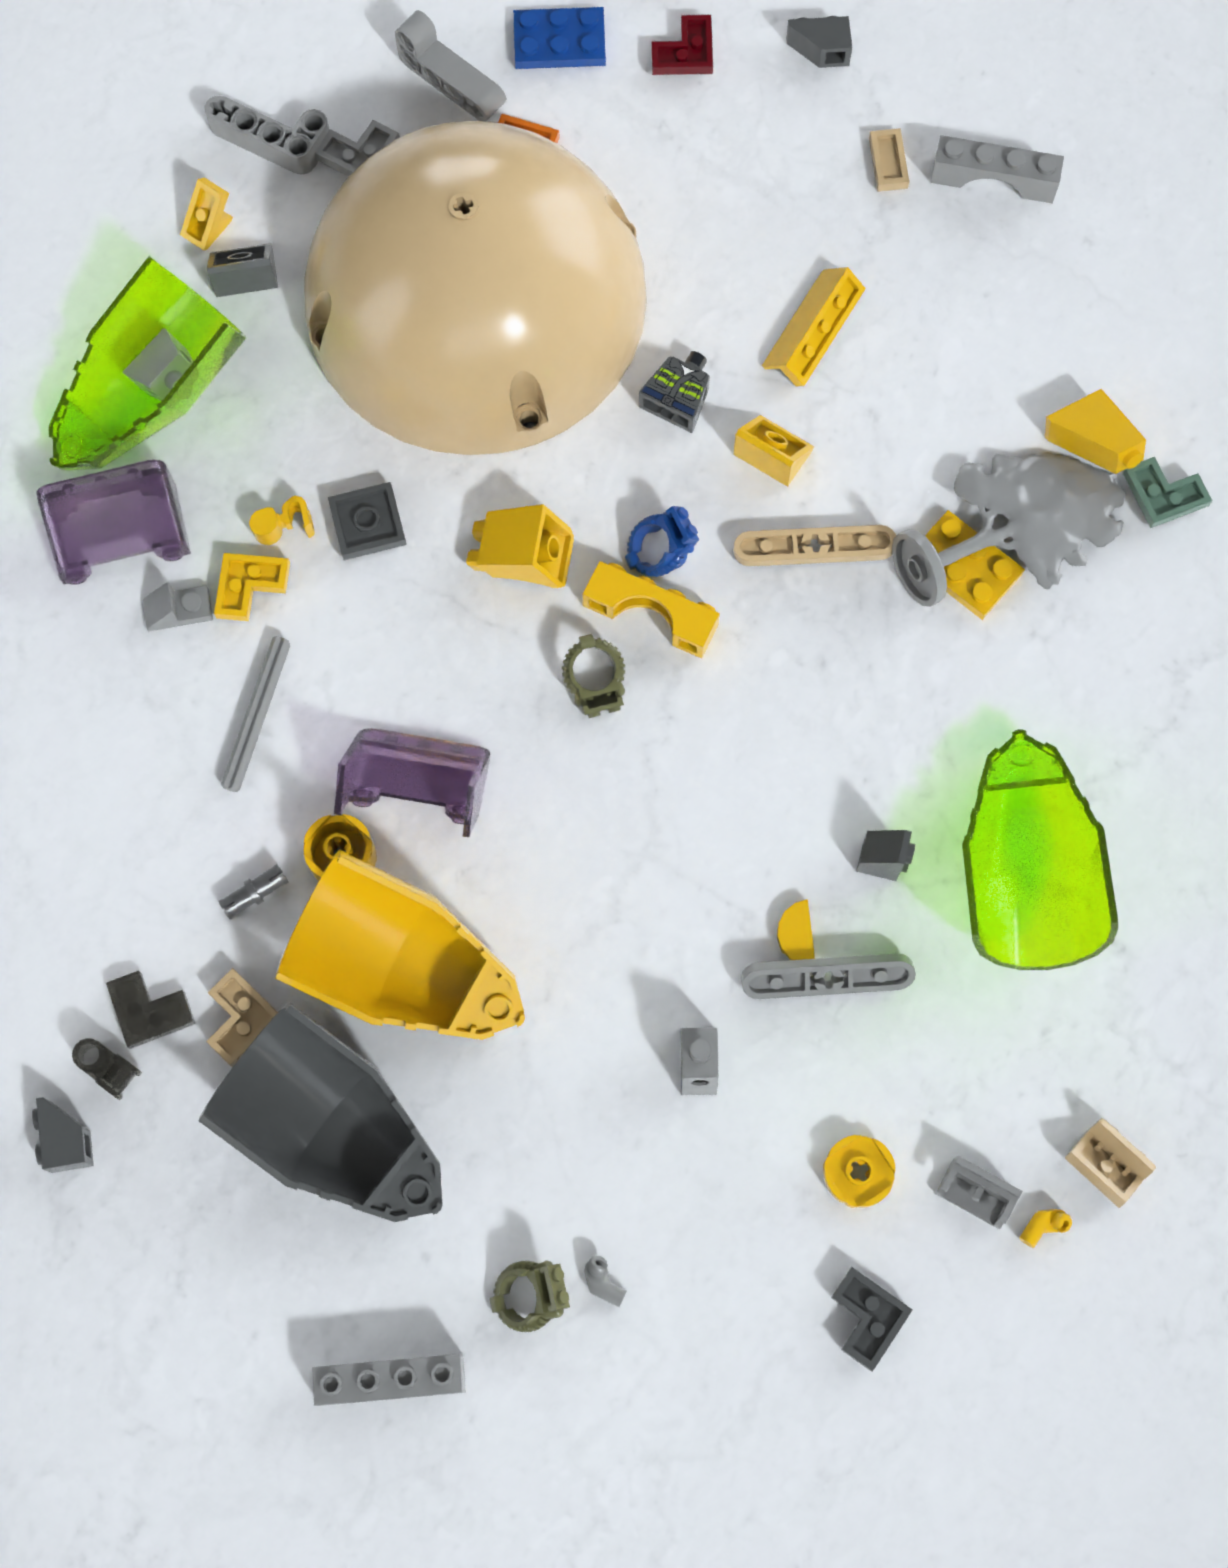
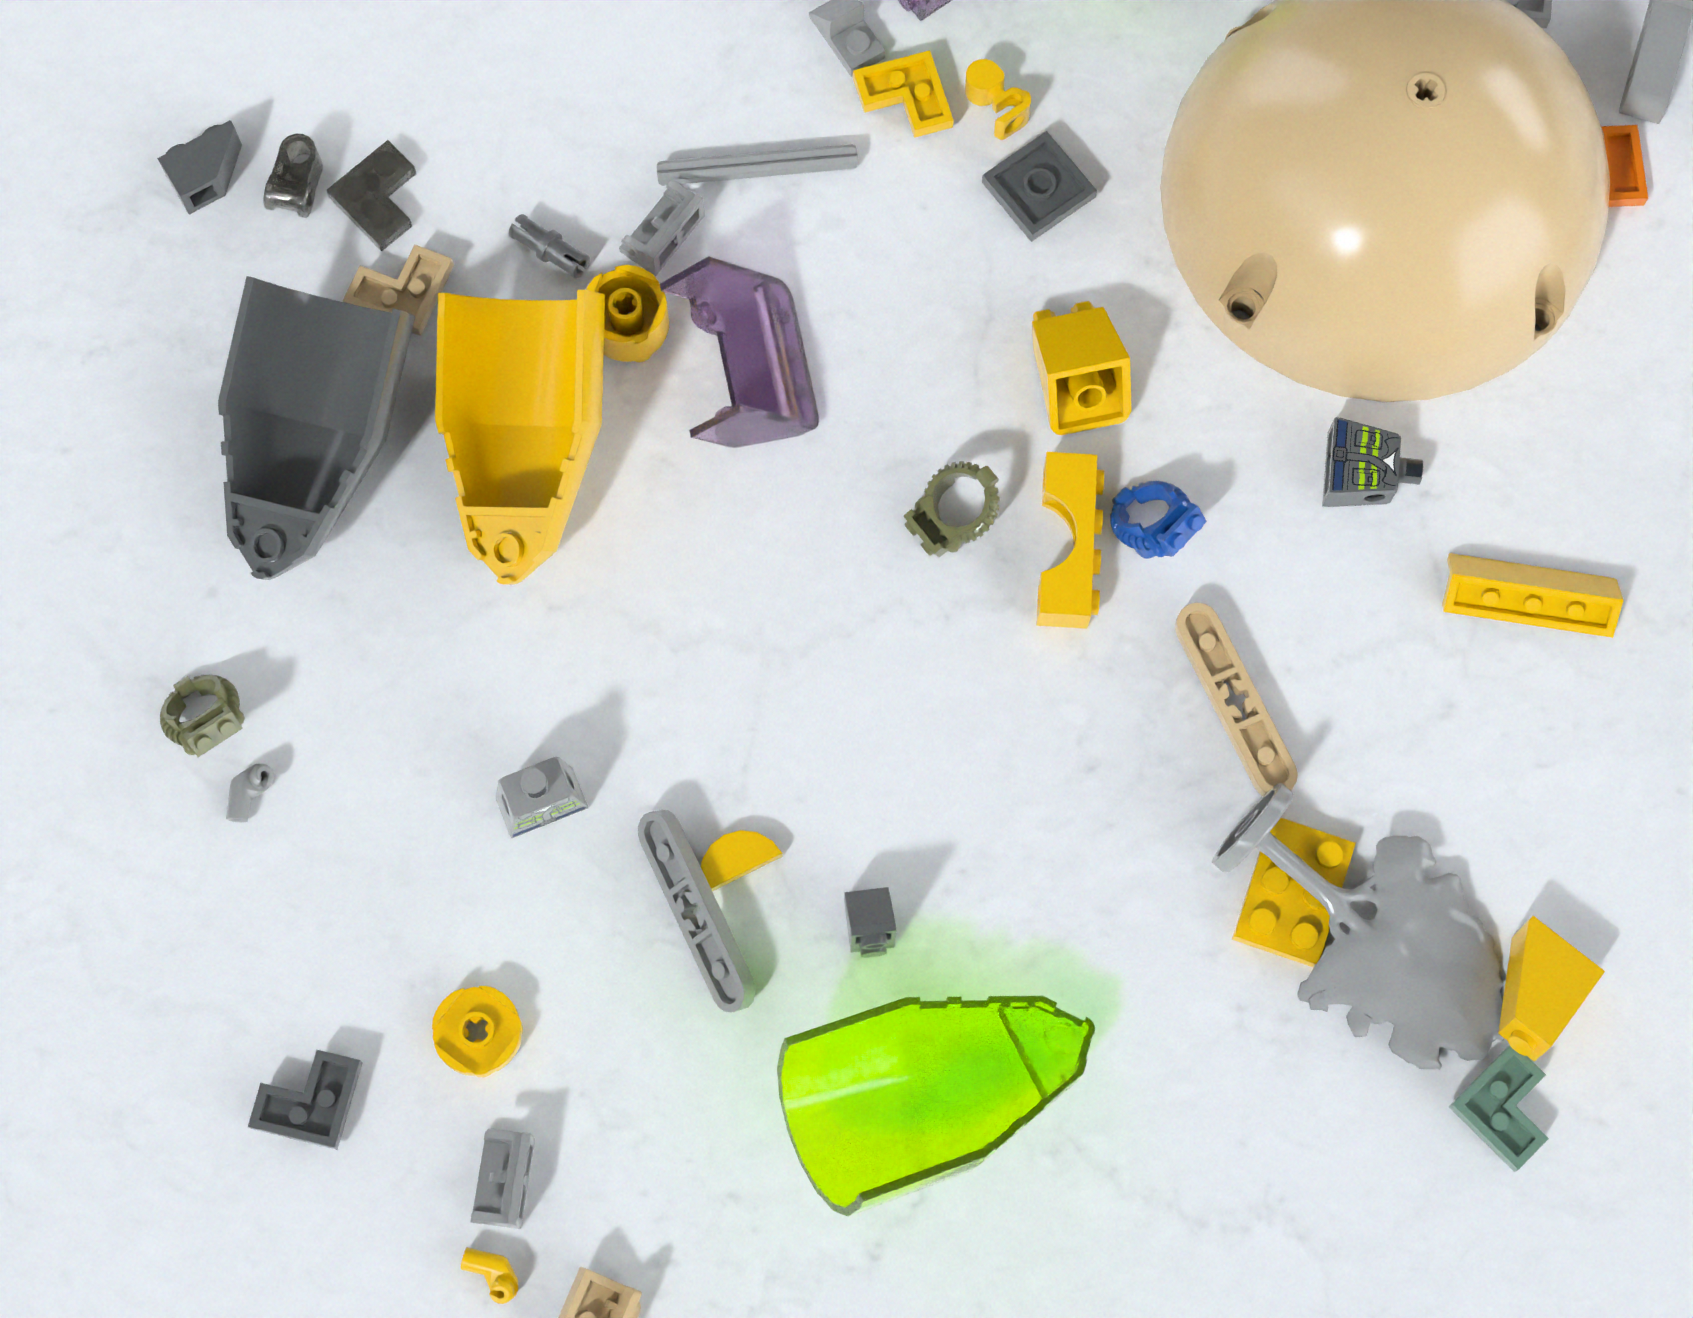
camera: 65 degrees right, 0 degrees up
(276, 801) = (664, 228): none -> light grey hinge
(388, 1379) = (59, 603): light grey brick -> none
(771, 449) = (1343, 603): yellow slope -> none

